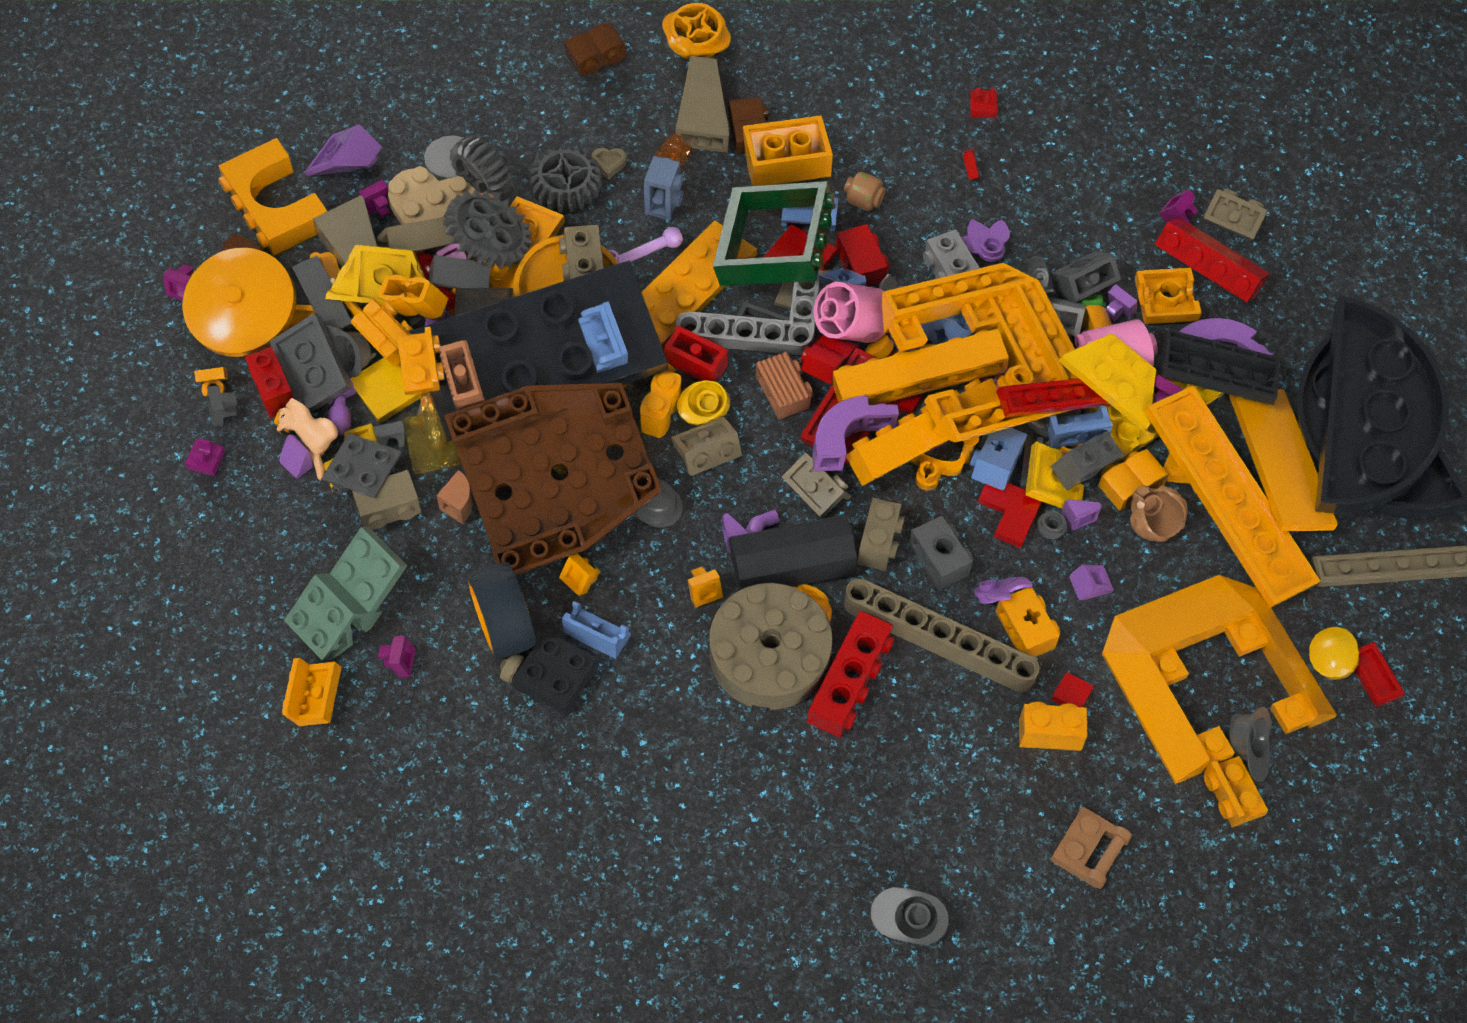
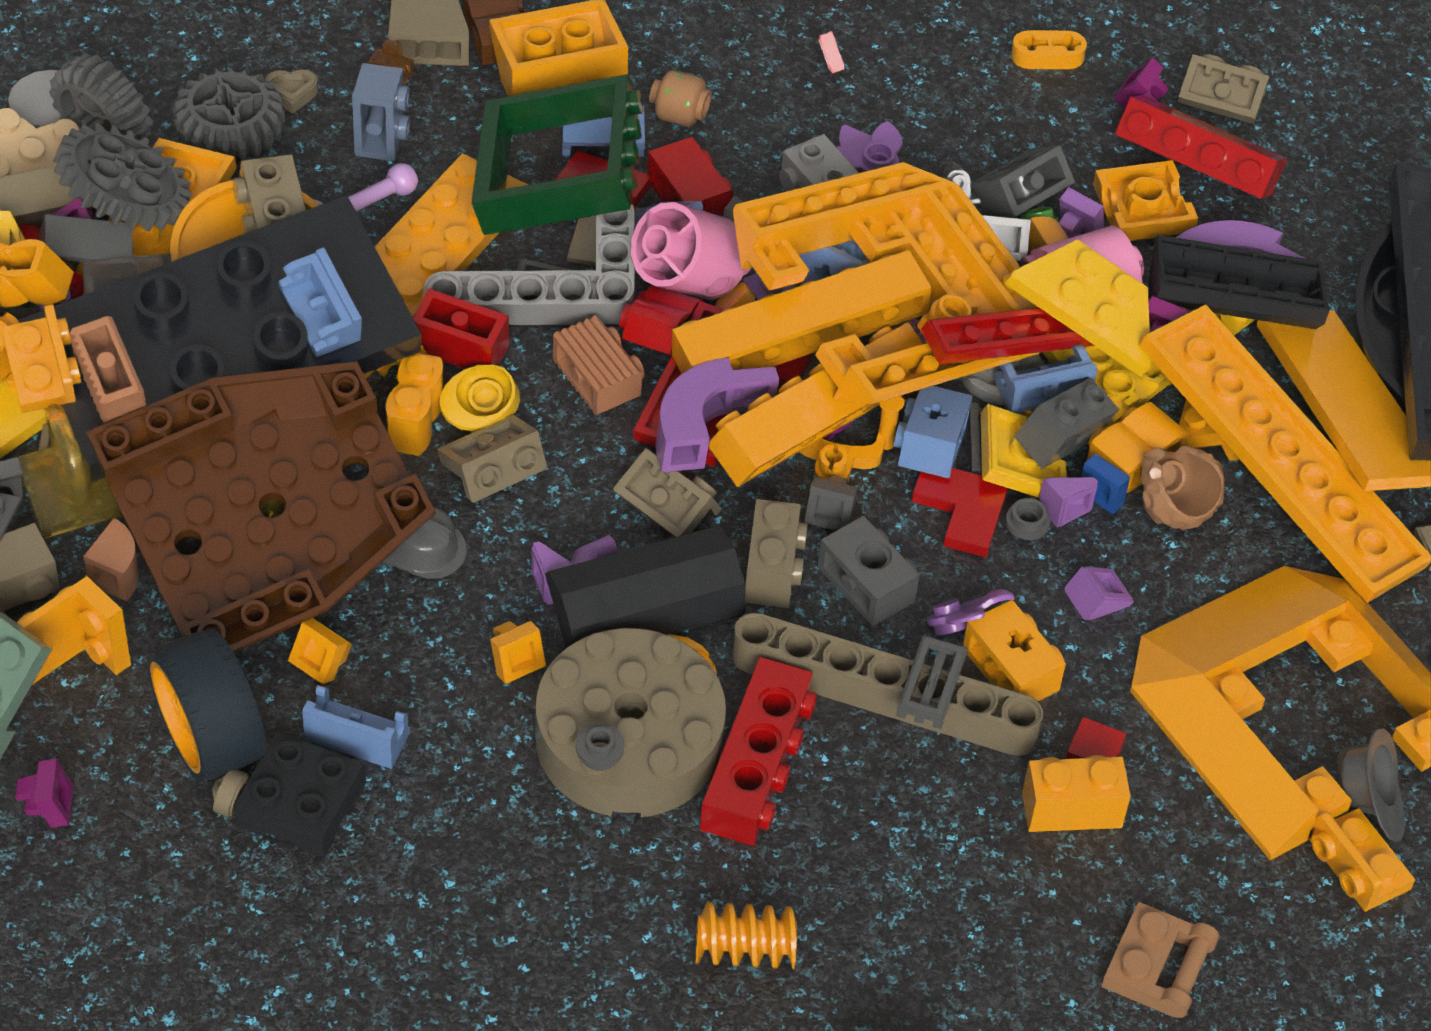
camera: 10 degrees left, 10 degrees down
(426, 540) = (80, 620): none -> light orange bracket
(742, 675) = (599, 757): none -> dark grey plate
(824, 803) = (746, 935): none -> light orange piece
(923, 501) = (830, 502): none -> dark grey tile
(959, 661) = (923, 710): none -> dark grey tile
(1110, 504) = (1111, 483): none -> blue tile
(1120, 173) = (1048, 49): none -> light orange beam

